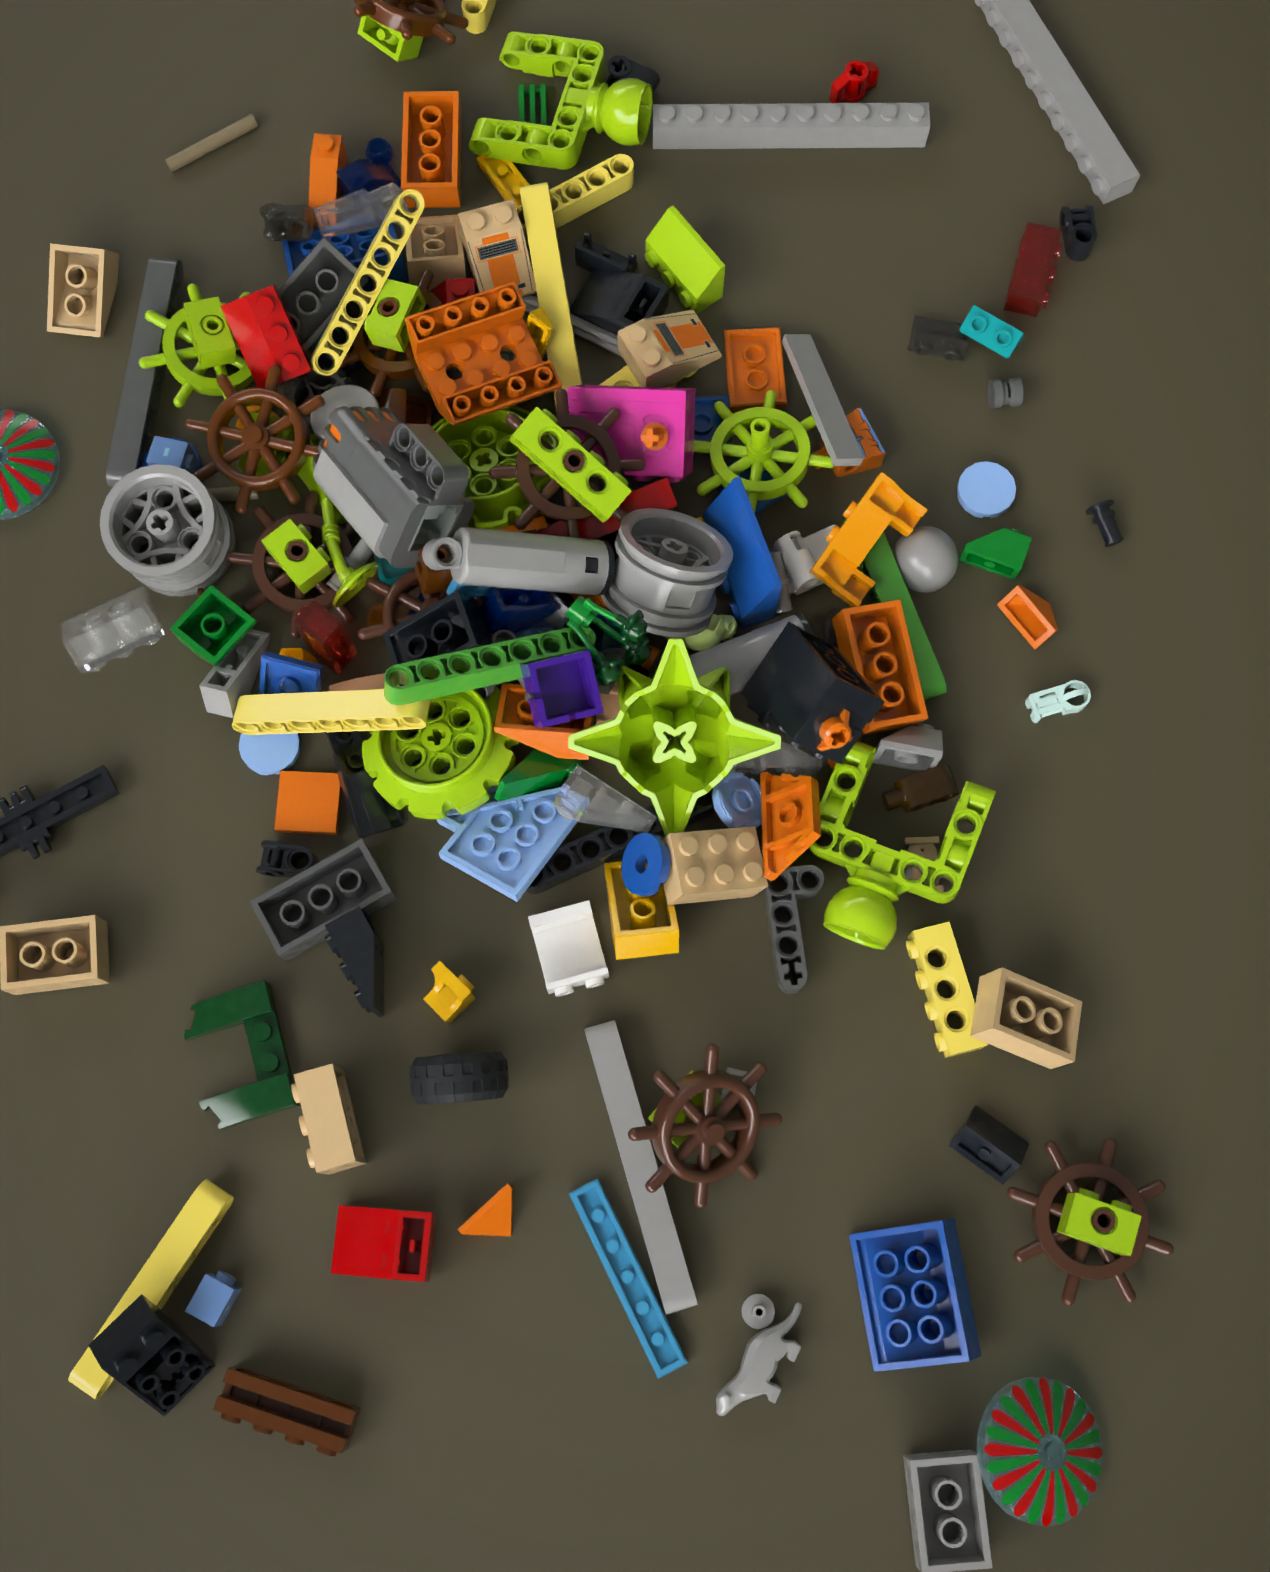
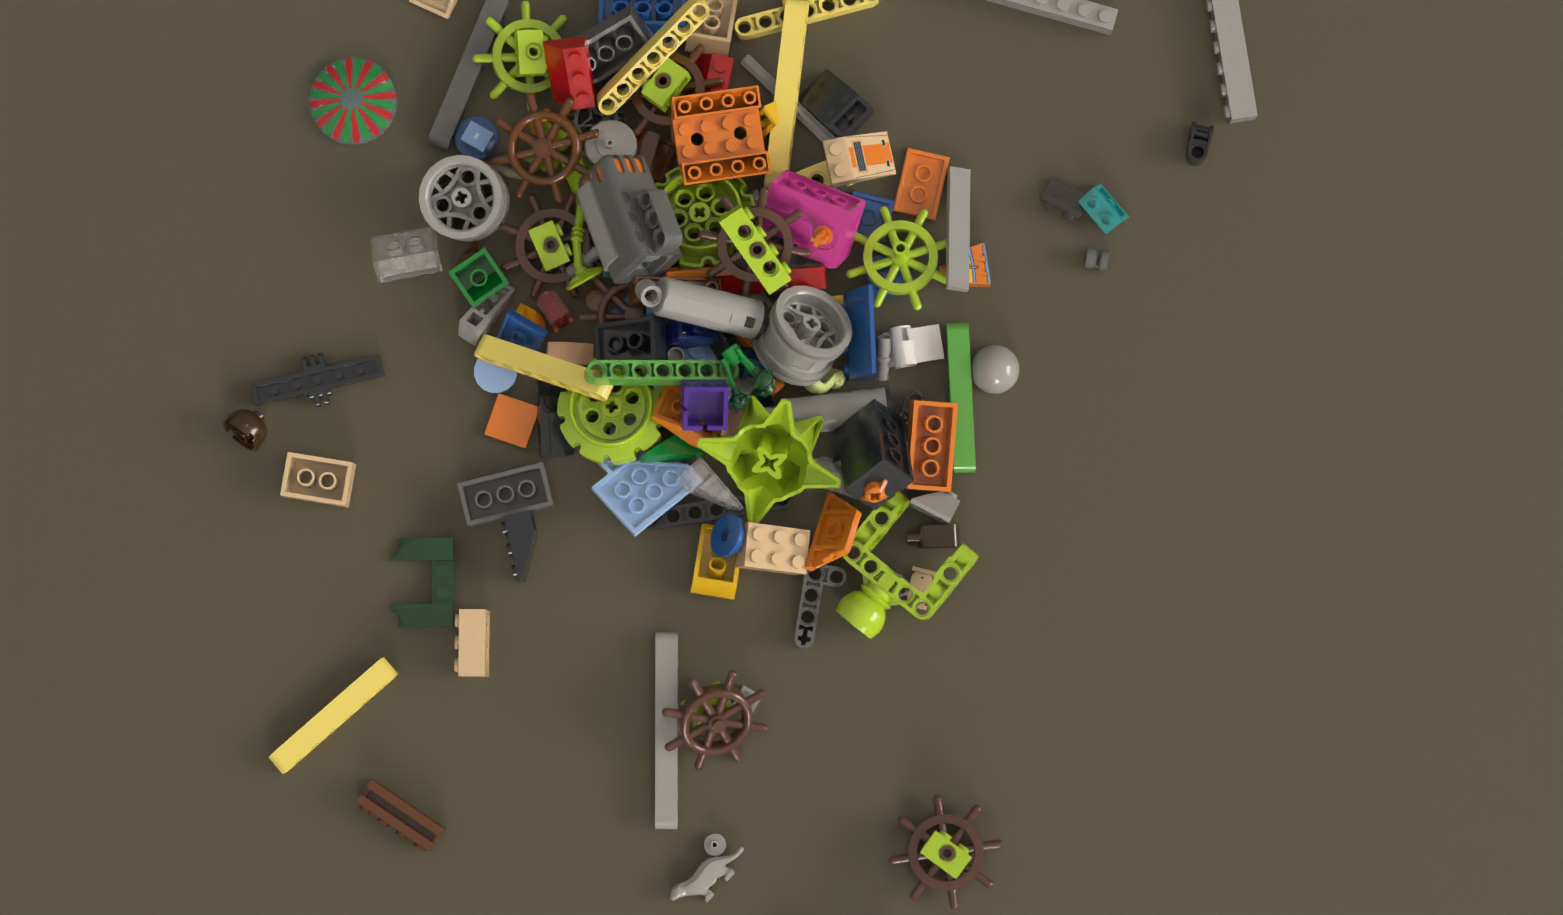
camera: 20 degrees right, 10 degrees up
(151, 1356) = (325, 757): black slope -> none
(214, 1298) = (371, 733): medium blue brick -> none
(282, 859) = (484, 456): black piece -> none
(384, 1243) = (487, 731): red slope -> none
(450, 994) = (573, 582): yellow brick -> none
(459, 1077) = (564, 641): black tyre -> none
(493, 1217) = (563, 735): orange slope -> none
(496, 247) = (755, 45): tan slope -> none
(569, 948) = (661, 575): white panel -> none
(592, 255) = (837, 63): black hinge -> none
(628, 1278) = (638, 798): dark azure tile -> none
(685, 261) = (892, 88): lime slope -> none
(738, 801) = (805, 509): light blue tile -> none
(850, 543) = (947, 344): light orange bracket -> none
(915, 1296) = (818, 864): blue slope -> none
(941, 940) = (909, 712): light yellow brick -> none
(986, 489) = (1057, 328): light blue tile -> none
(990, 1145) = (899, 785): black panel -> none
(998, 552) = (1049, 380): green slope -> none
(1026, 1018) = (947, 712): tan brick -> none
(1029, 615) = (1055, 432): orange slope -> none
(1033, 270) = (1152, 166): clear red brick -> none
(1054, 700) = (1048, 500): light aqua piece -> none
(1106, 523) = (1133, 378): black pin -> none

